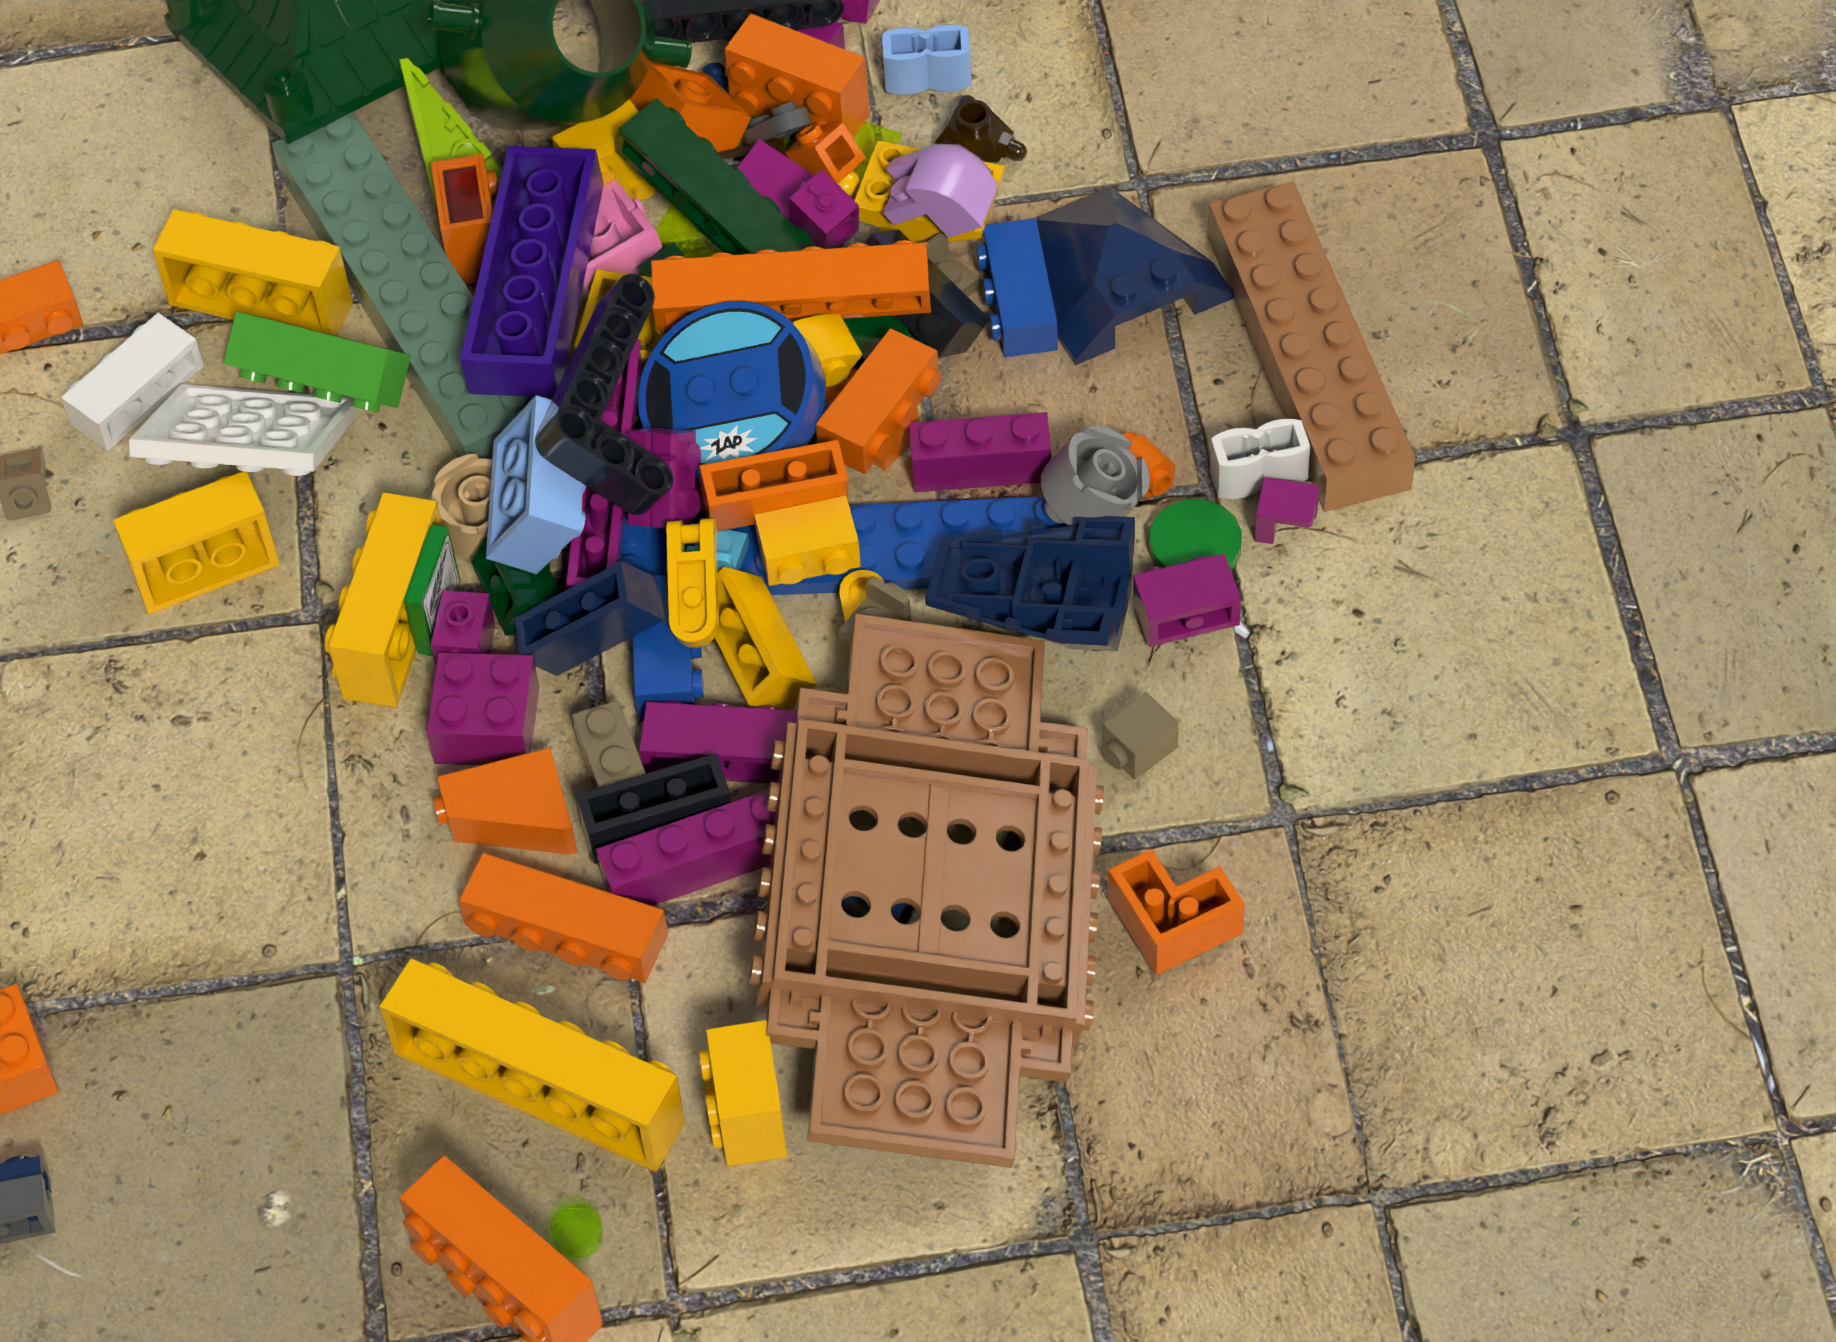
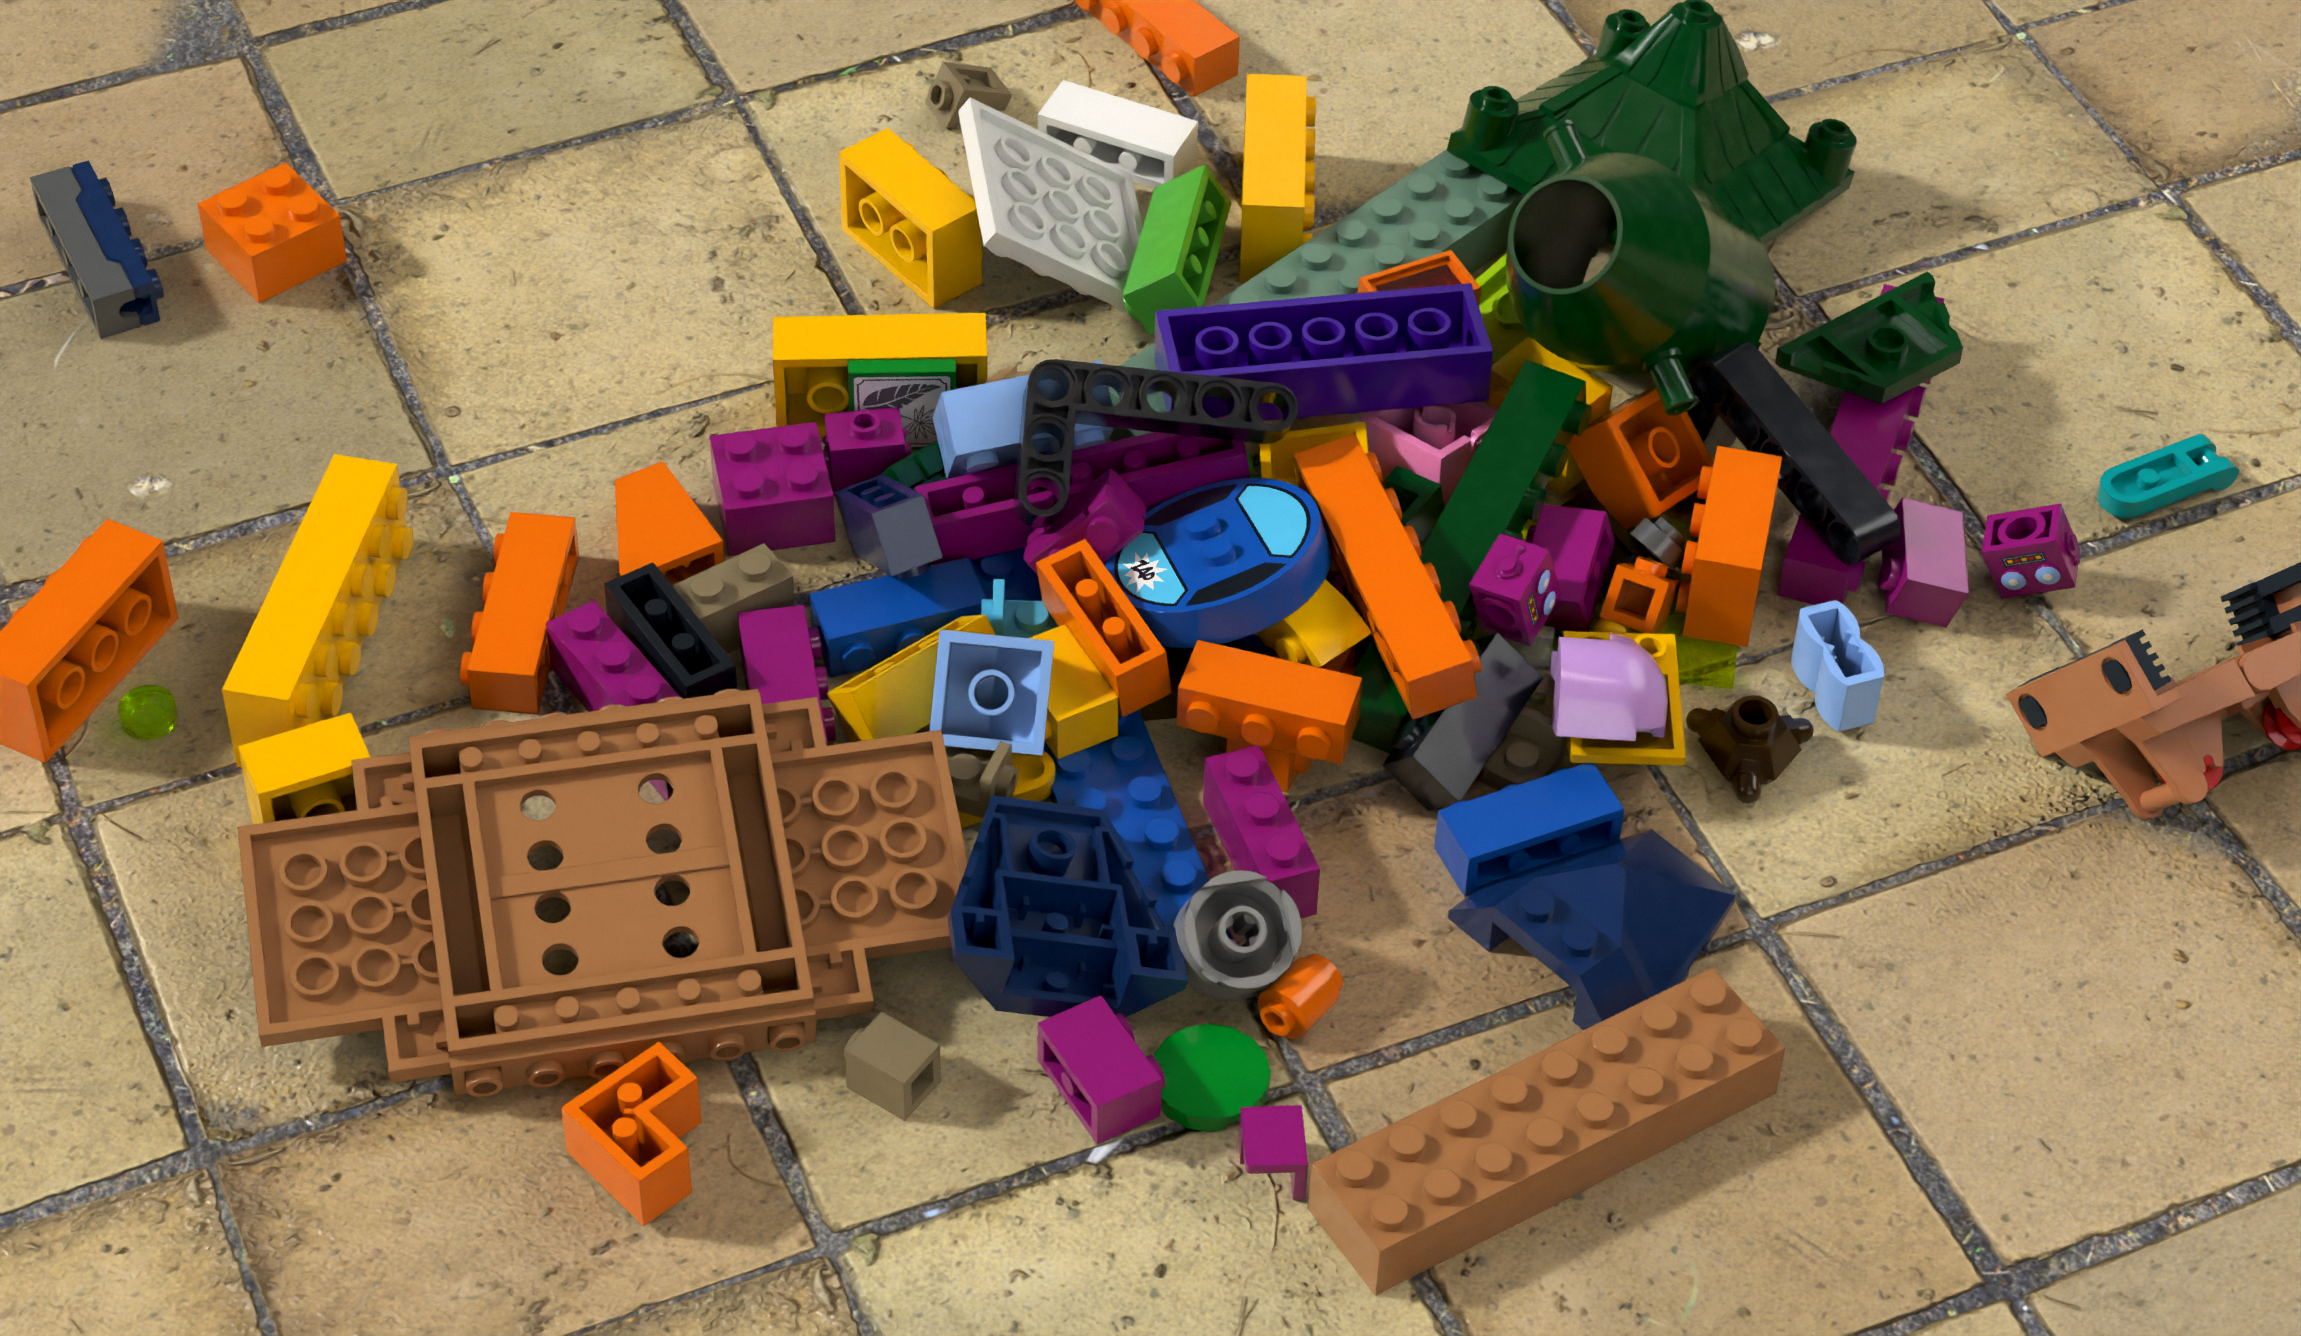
camera: 70 degrees right, 10 degrees down
(693, 582) = (955, 589): yellow plate -> none
(810, 581) = (992, 691): none -> light blue slope
(1247, 455) = (1333, 1095): white brick -> none

